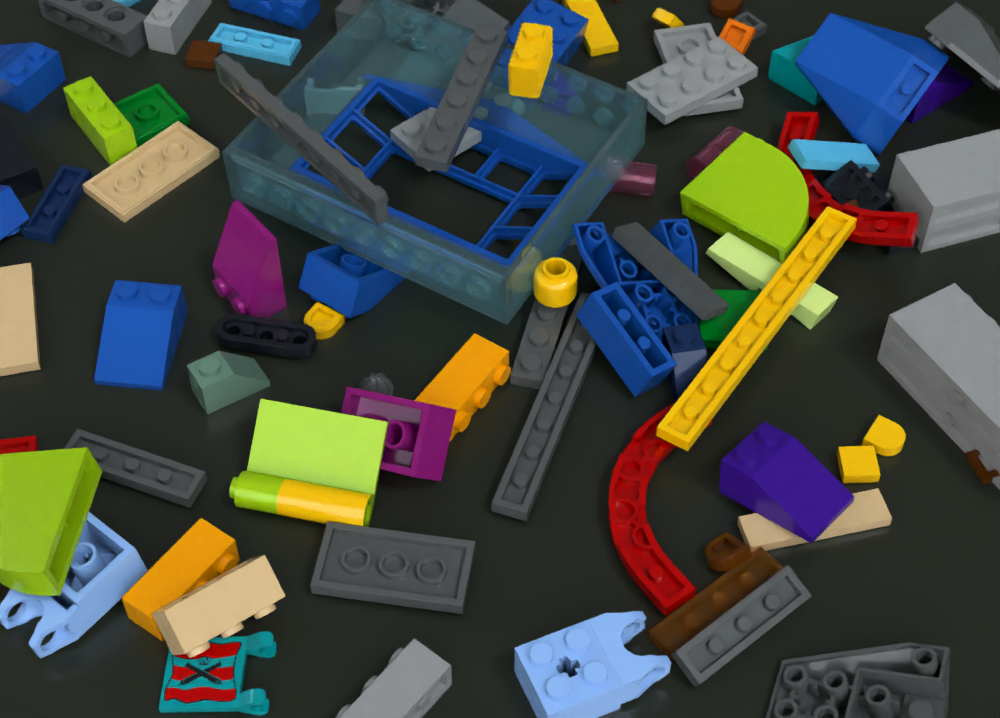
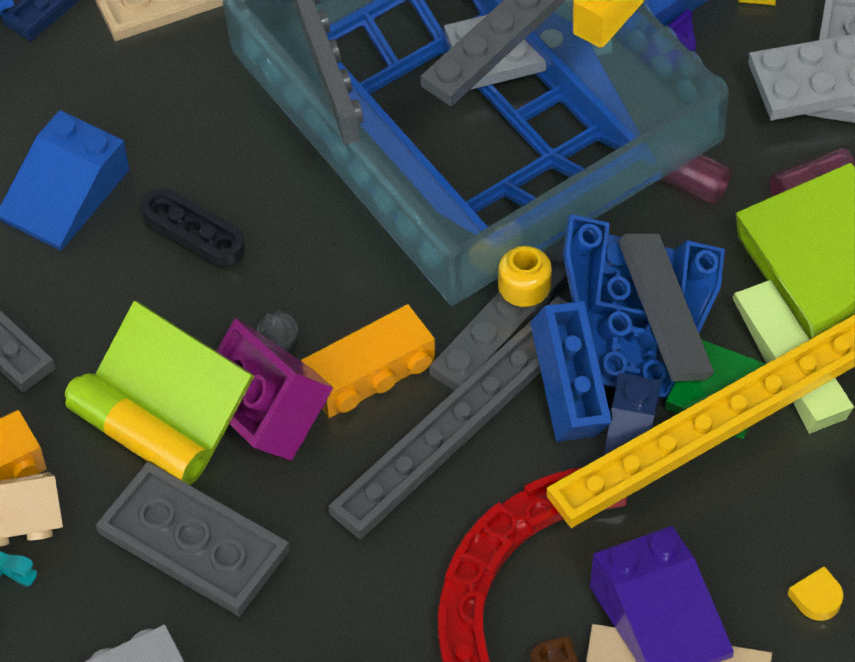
camera: 25 degrees right, 5 degrees up
(225, 379) = (126, 262): sand green slope -> none
(248, 265) = (201, 145): magenta slope -> none
(324, 320) = (263, 230): yellow tile -> none
(346, 280) = (306, 191): blue slope -> none
(858, 464) = (767, 615): yellow tile -> none

